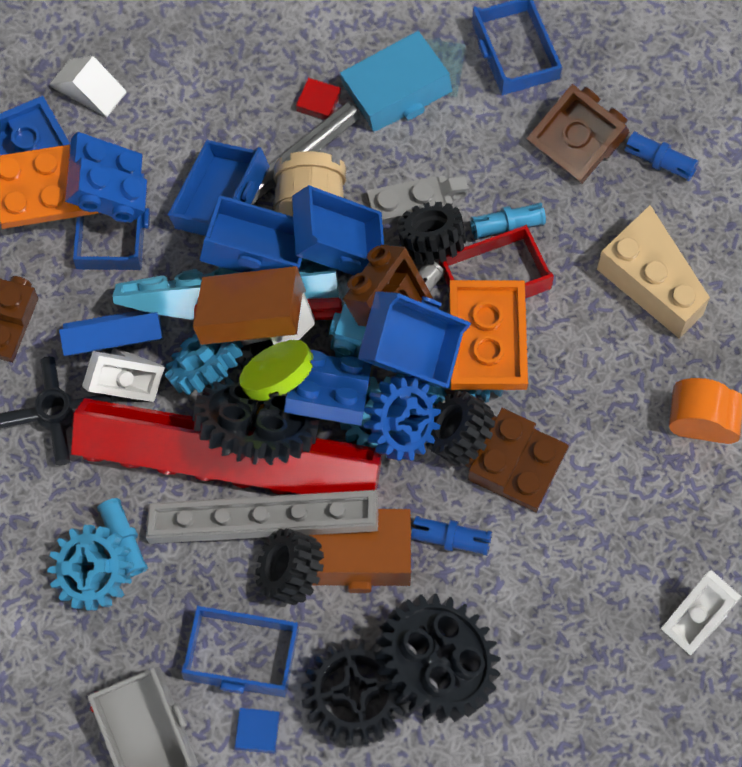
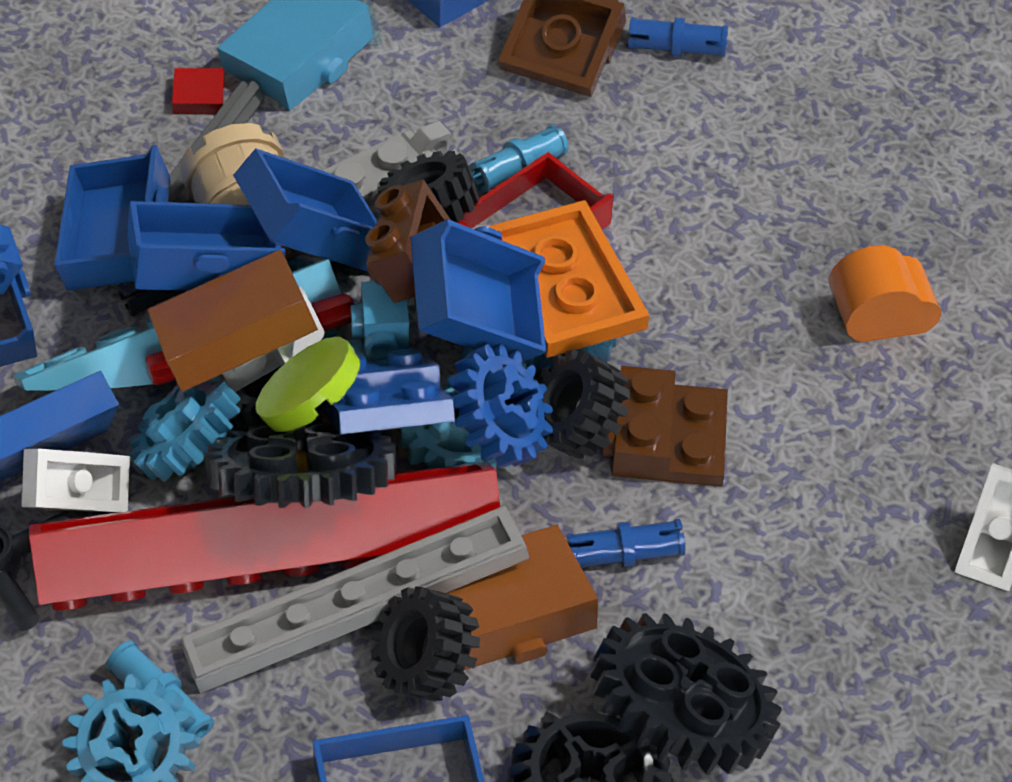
camera: 25 degrees left, 15 degrees down
(655, 273) = (740, 162): tan wedge -> none

